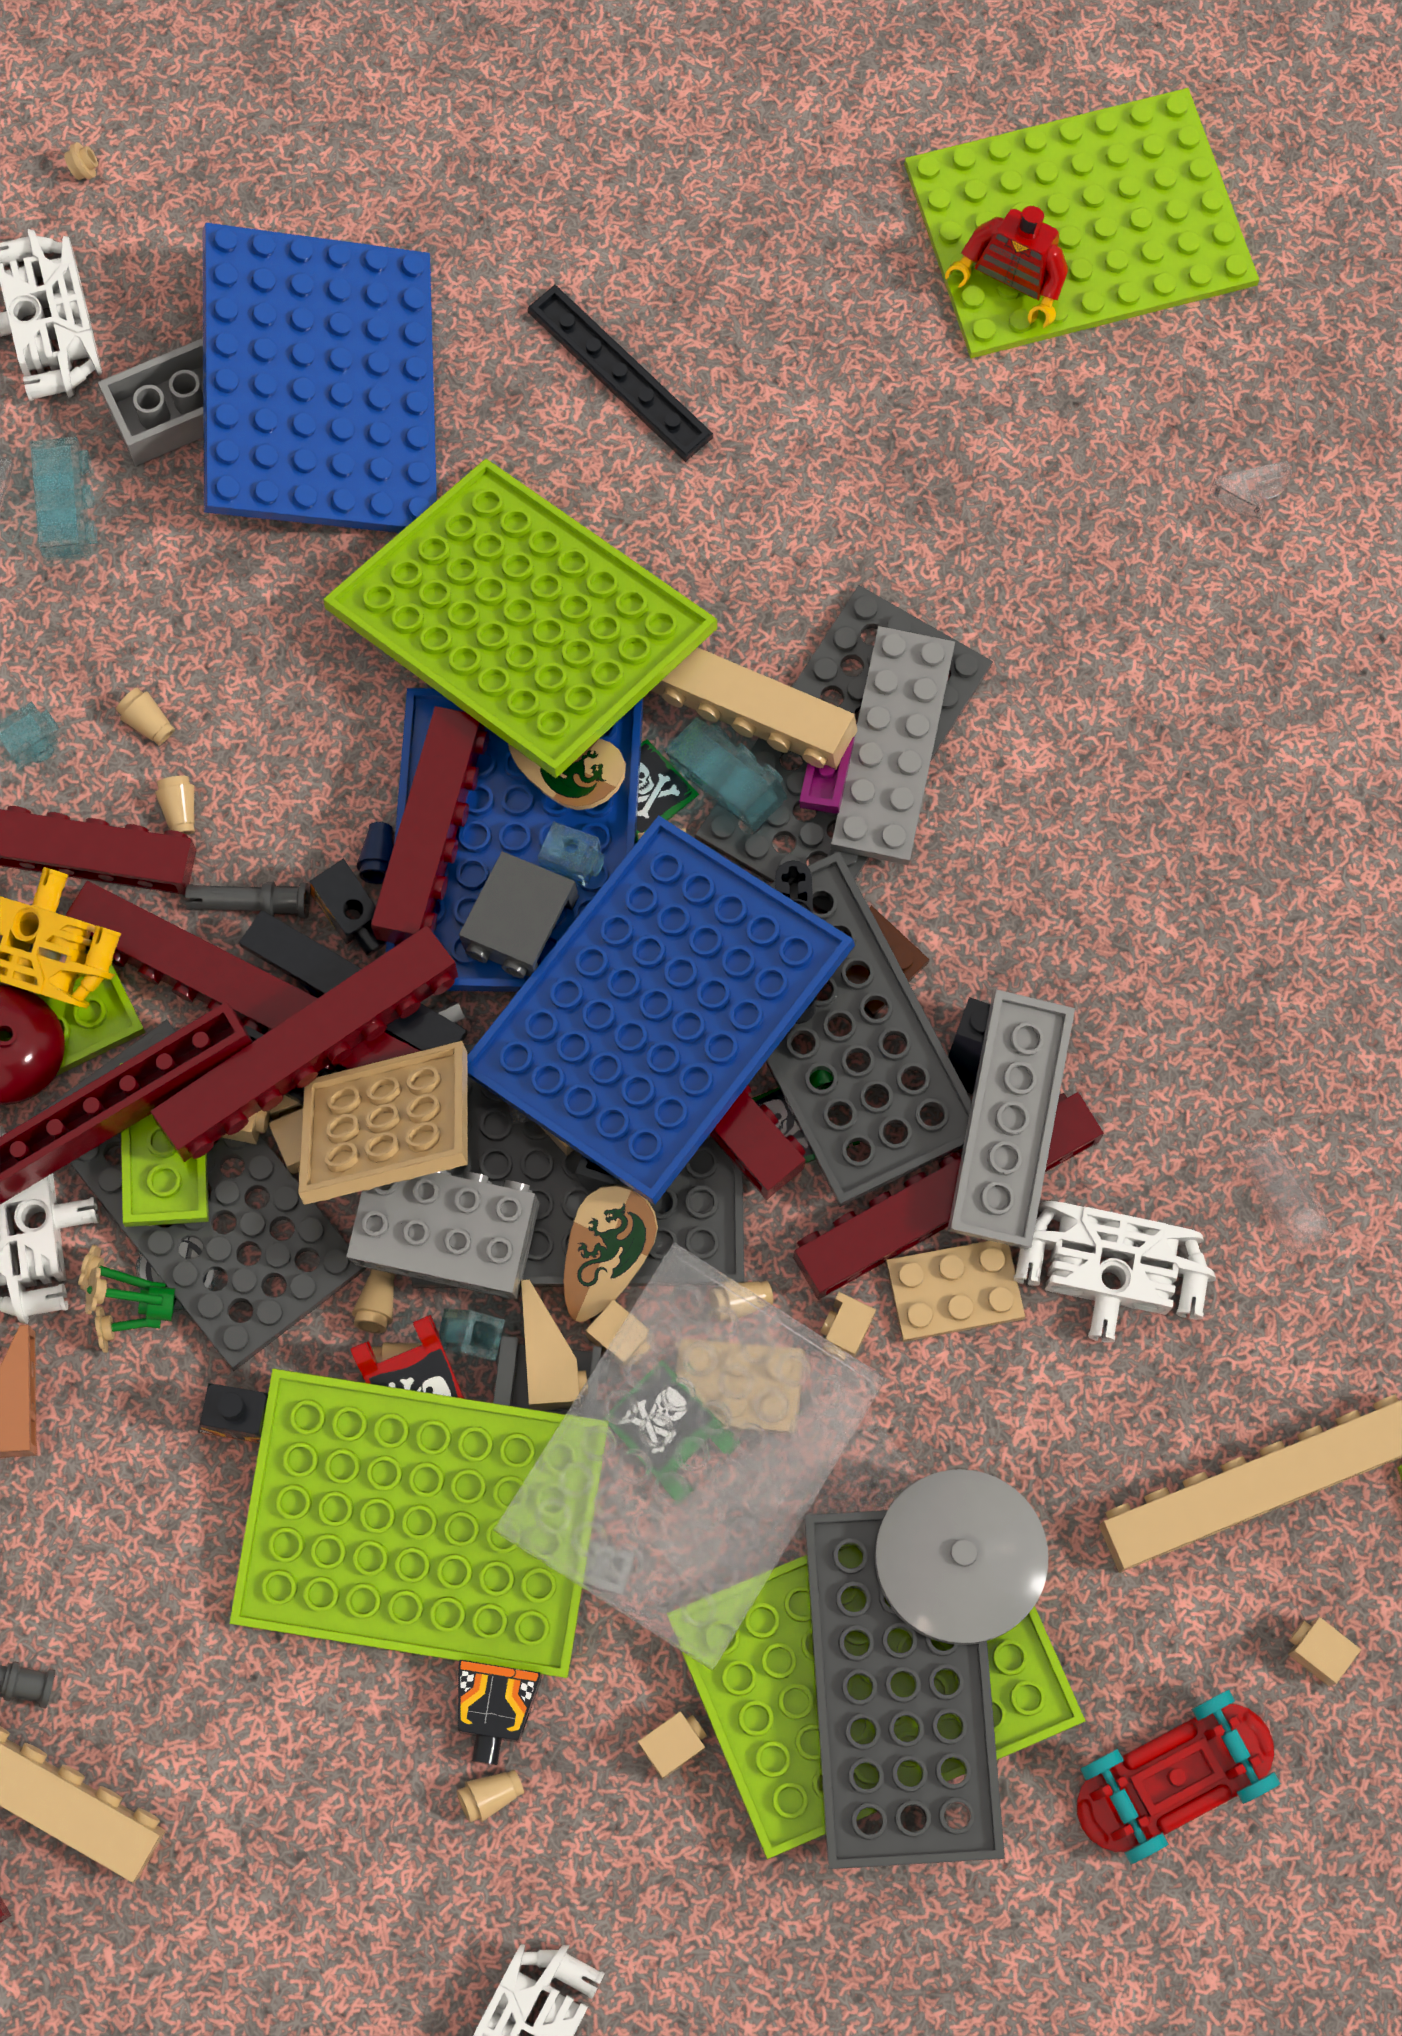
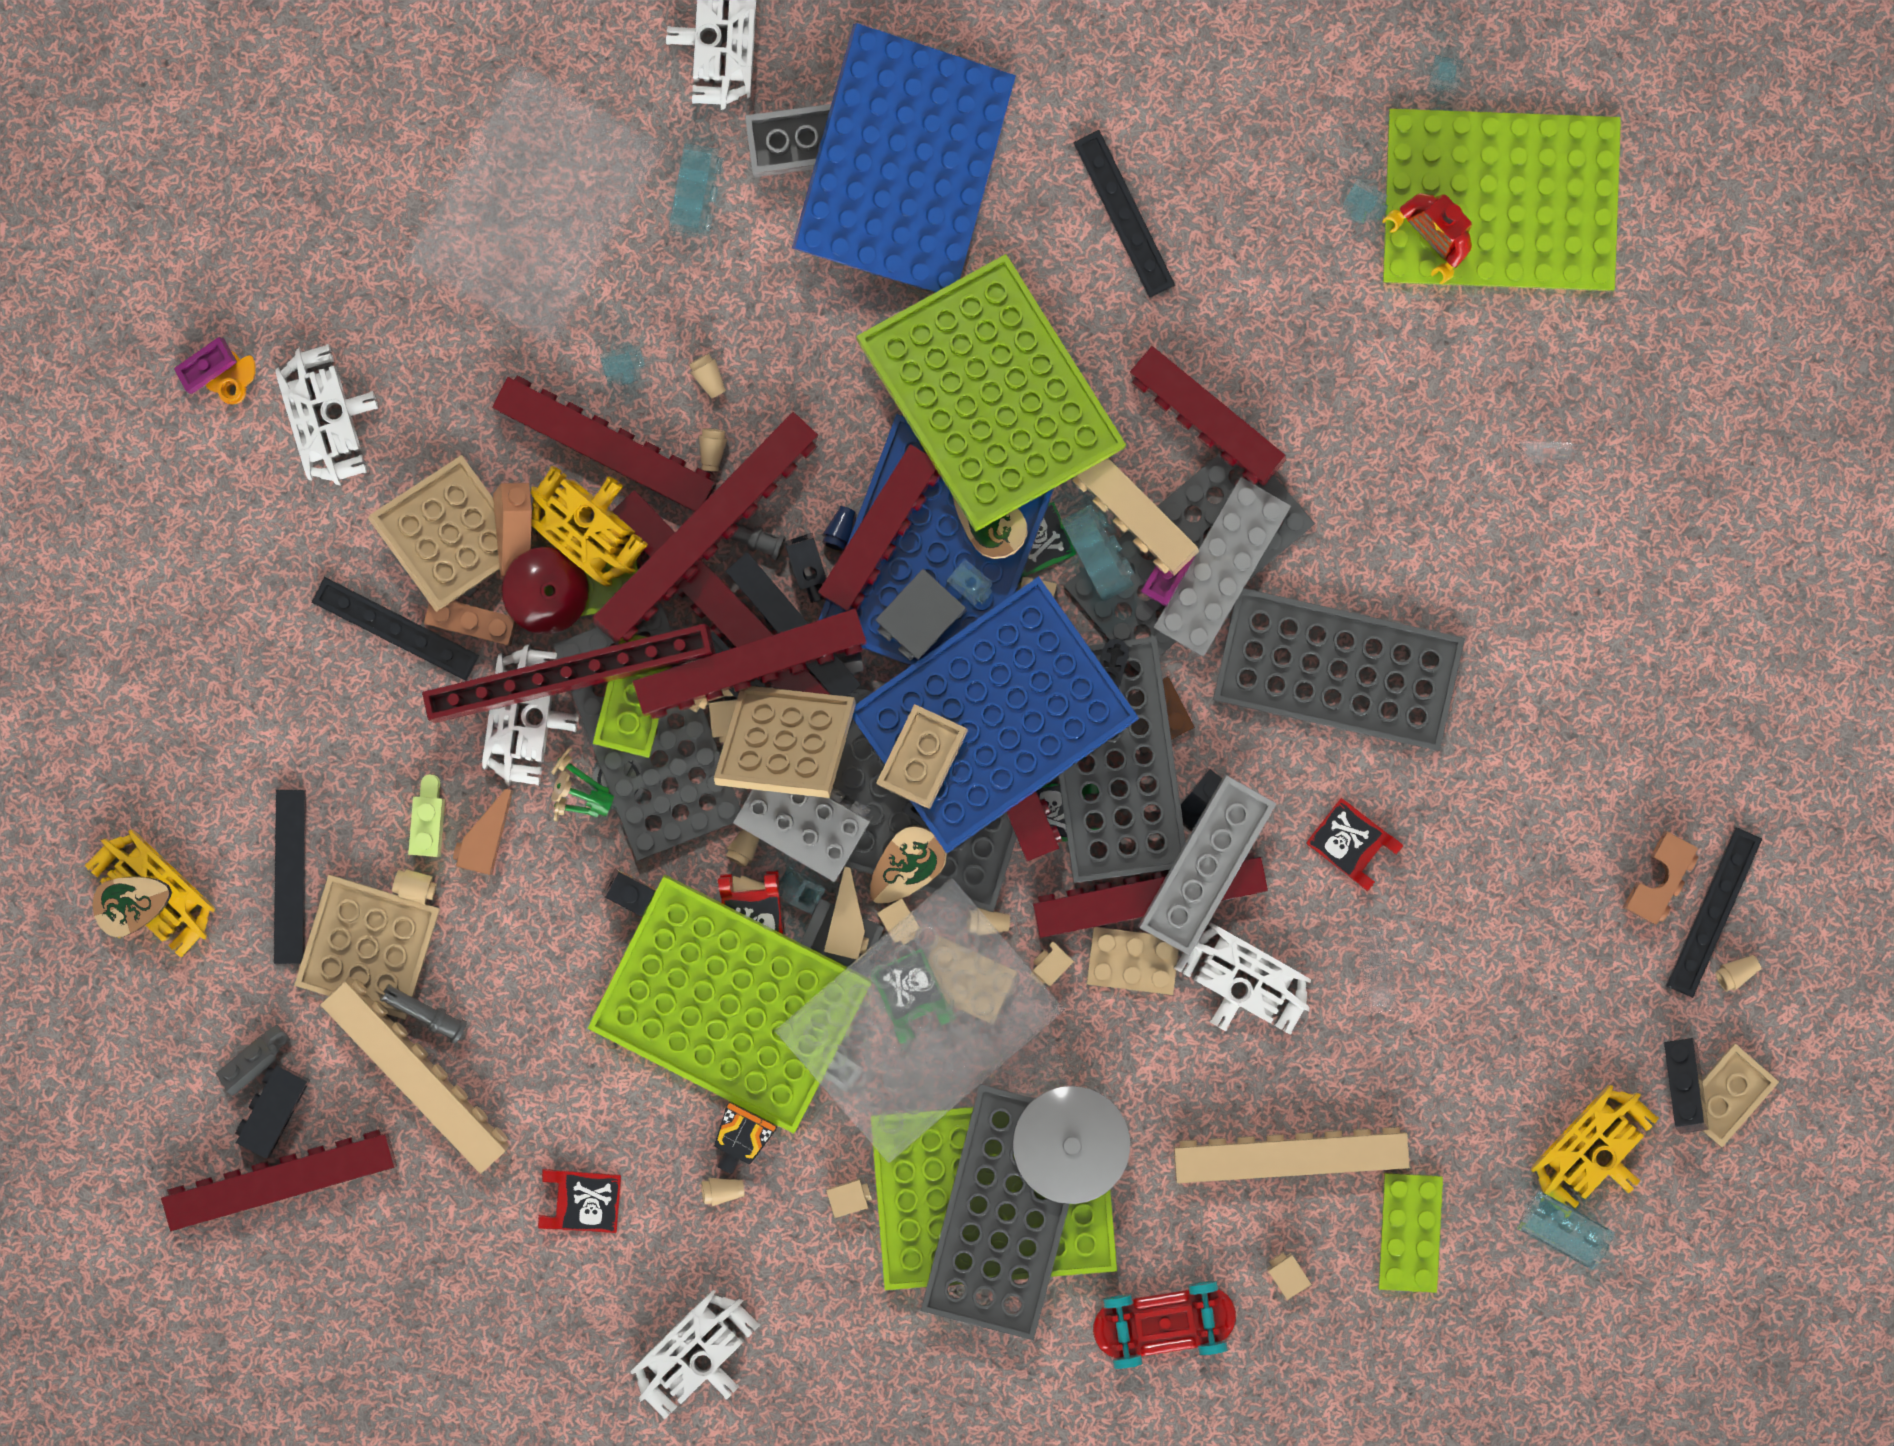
camera: 25 degrees right, 15 degrees up
(193, 899) = (705, 529): none -> dark red brick
(296, 1877) = (583, 1201): none -> flag
(579, 1085) = (922, 756): none -> tan plate
(809, 568) = (1208, 416): none -> dark red brick
(914, 268) = (1364, 203): none -> clear light blue brick
(958, 97) = (1445, 74): none -> clear light blue brick
(1077, 887) = (1343, 715): none -> dark grey piece
(1188, 1043) = (1351, 841): none -> flag

